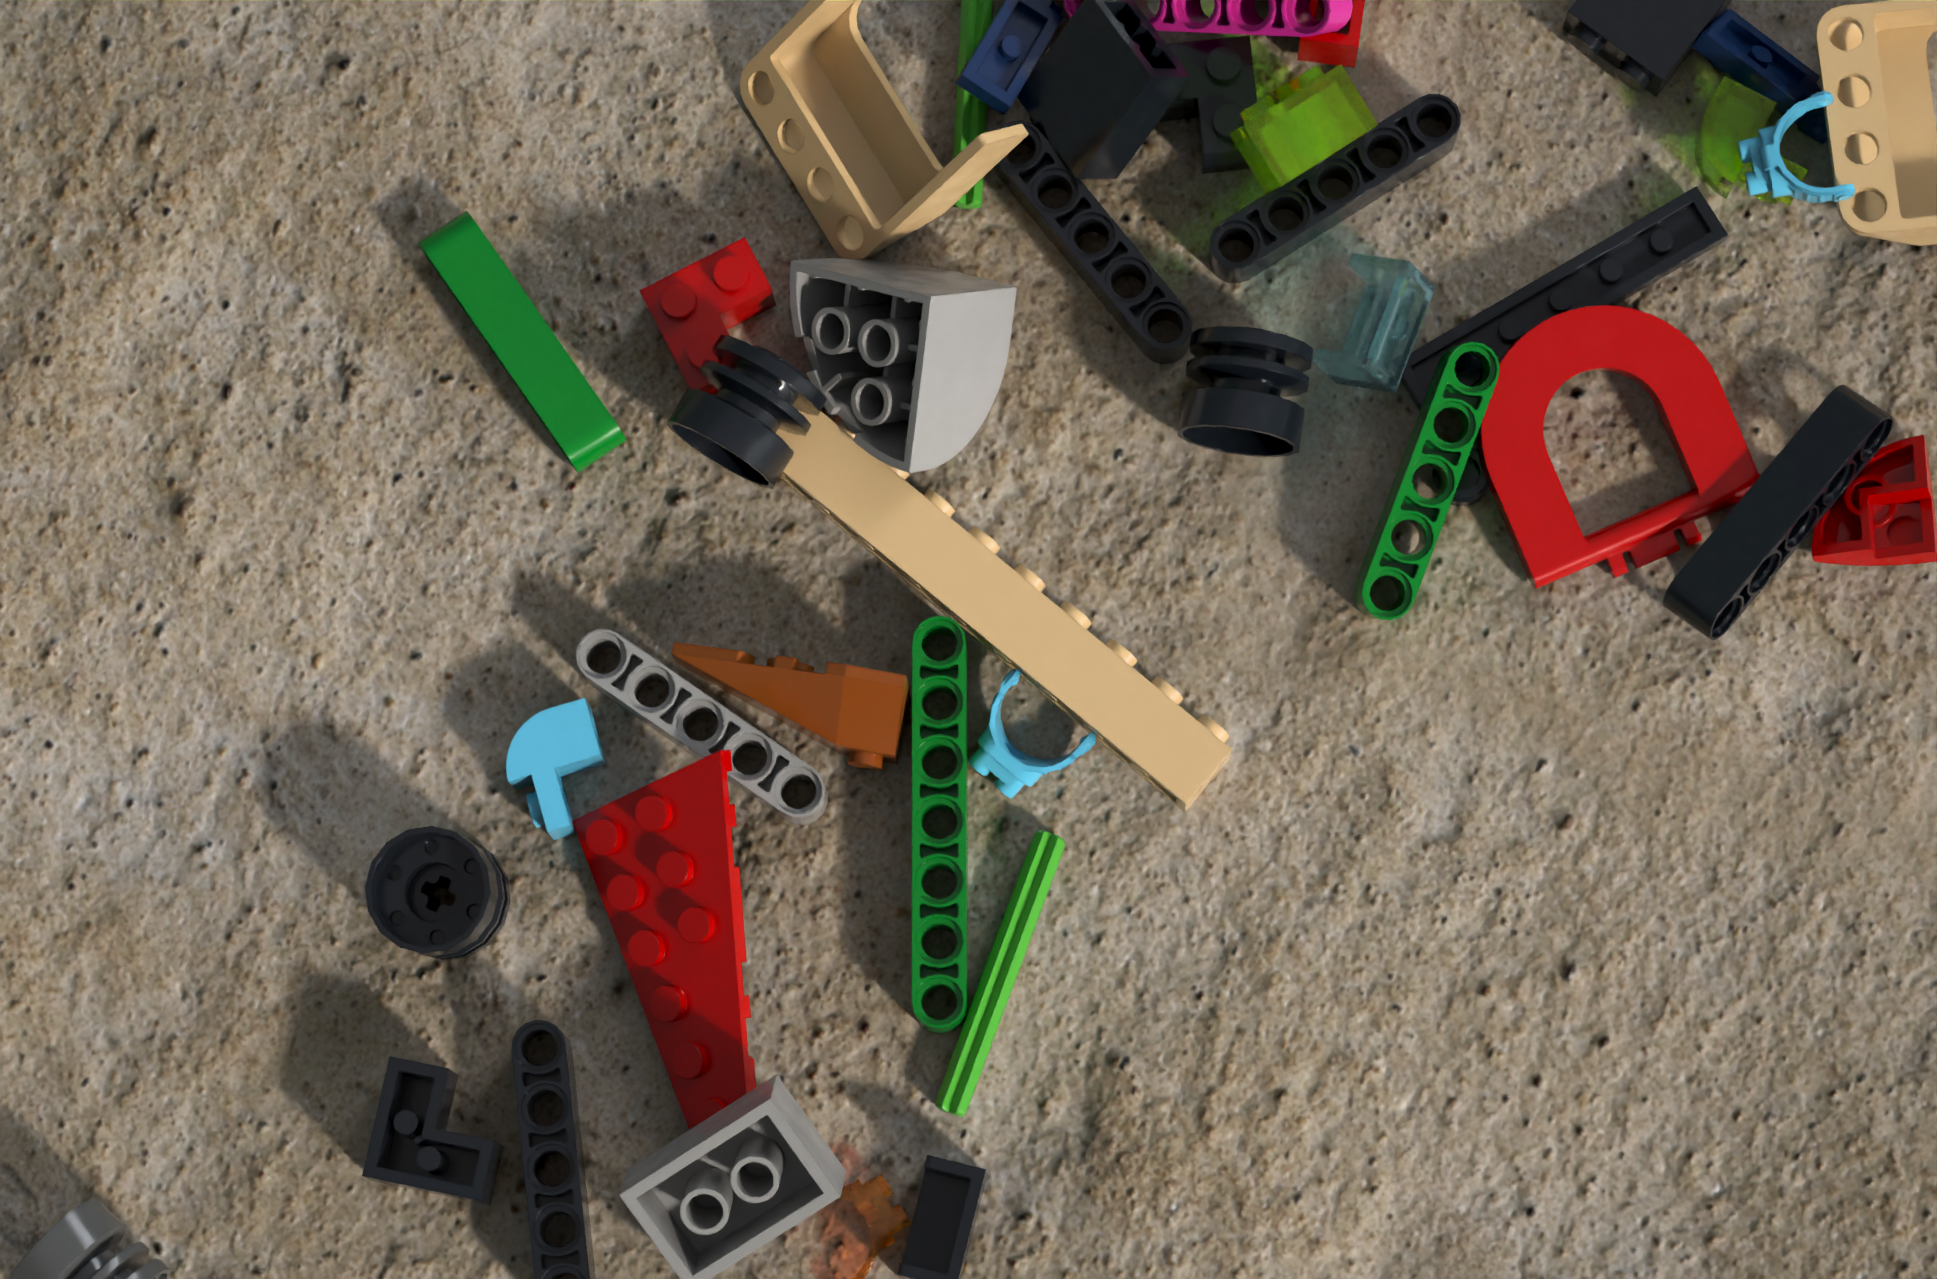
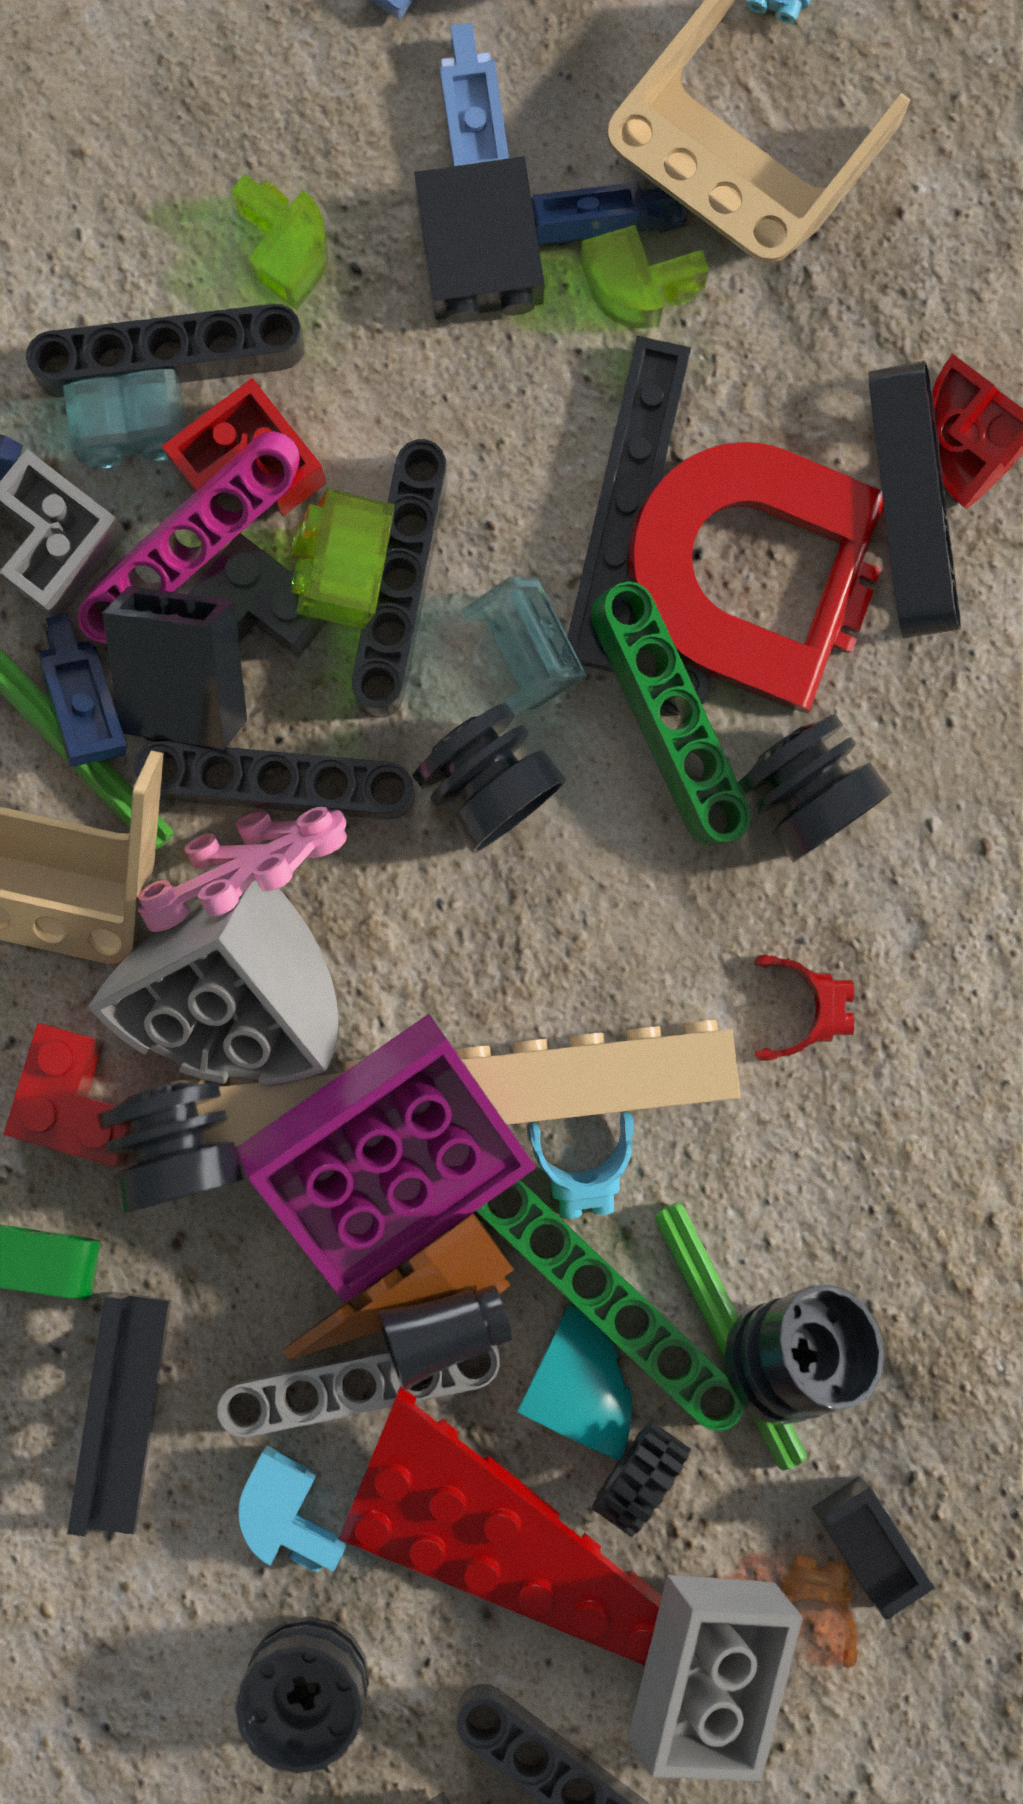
camera: 60 degrees left, 5 degrees up
(513, 573) = (119, 1414): none -> black fence
(799, 740) = (443, 1332): none -> black plant
(829, 996) = (641, 1479): none -> black tyre
(854, 896) = (581, 1387): none -> teal brick
(887, 578) = (384, 1158): none -> magenta slope
(1036, 1027) = (804, 1355): none -> black wheel
(1075, 303) = (270, 864): none -> bright pink plant
(1317, 819) = (829, 1002): none -> red helmet
(1477, 626) = (813, 786): none -> black wheel
(1768, 168) = (680, 272): medium azure helmet -> none

